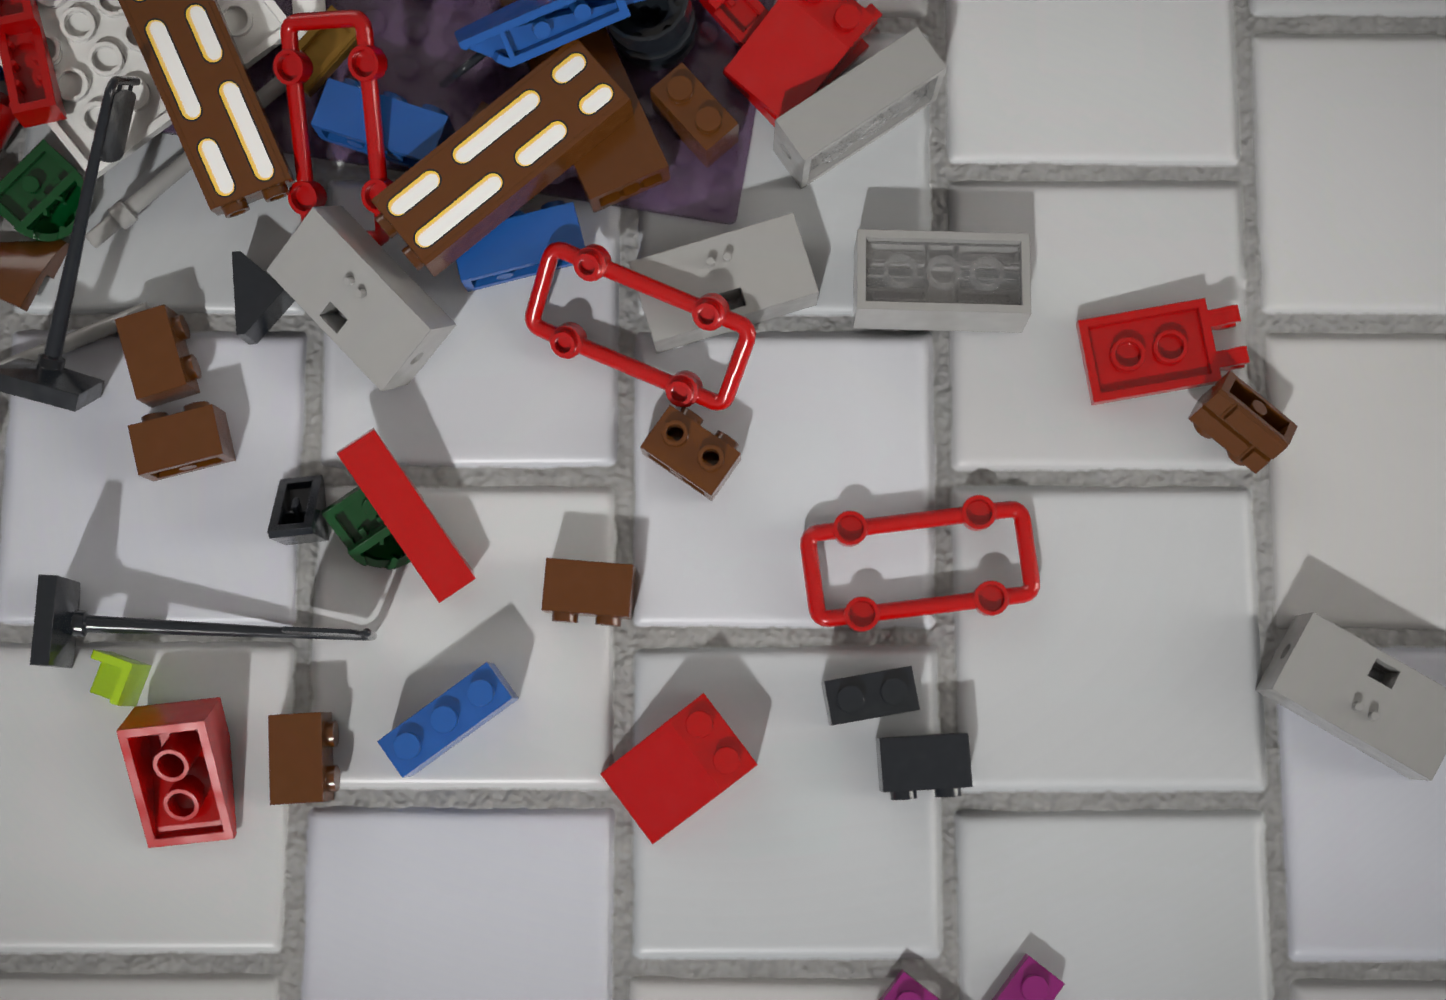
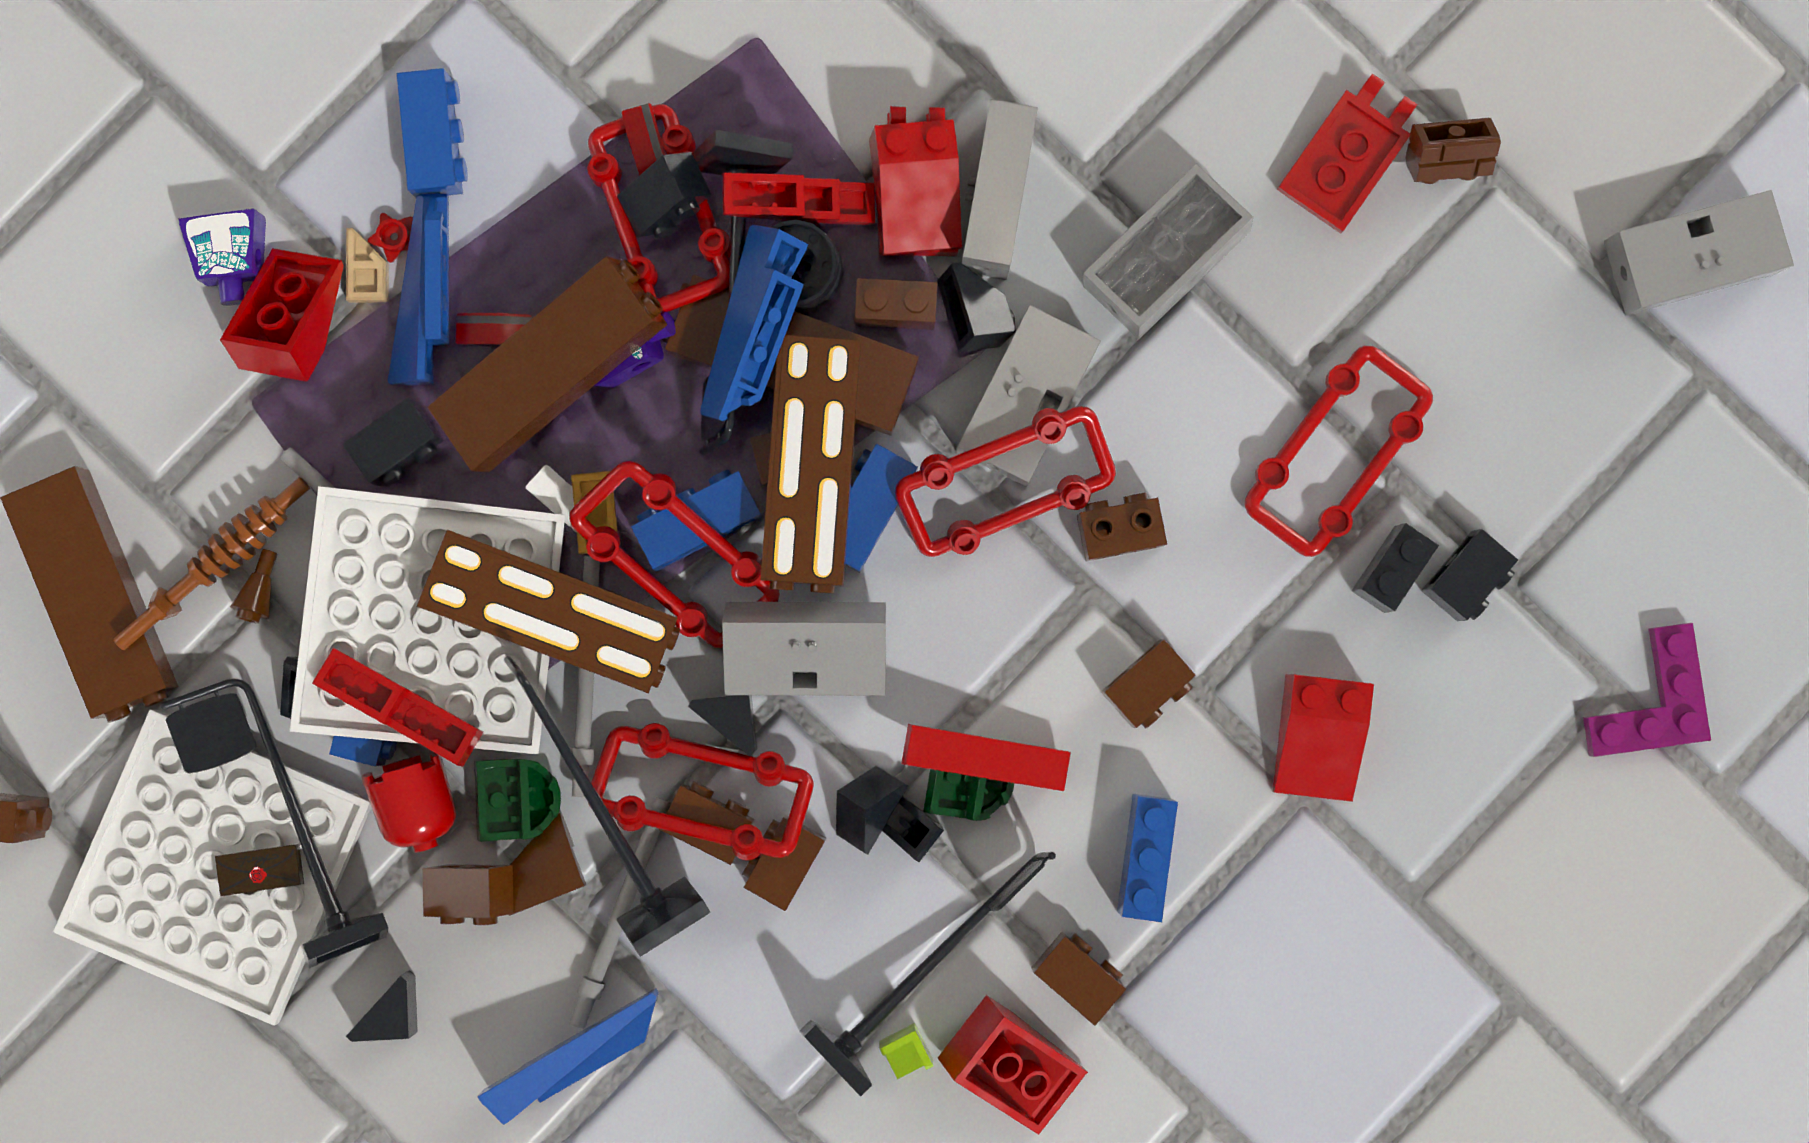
camera: 55 degrees left, 5 degrees up
(162, 389) = (746, 839): none -> red bar
(285, 463) = (866, 807): none -> black slope
(750, 181) = (975, 310): none -> black slope

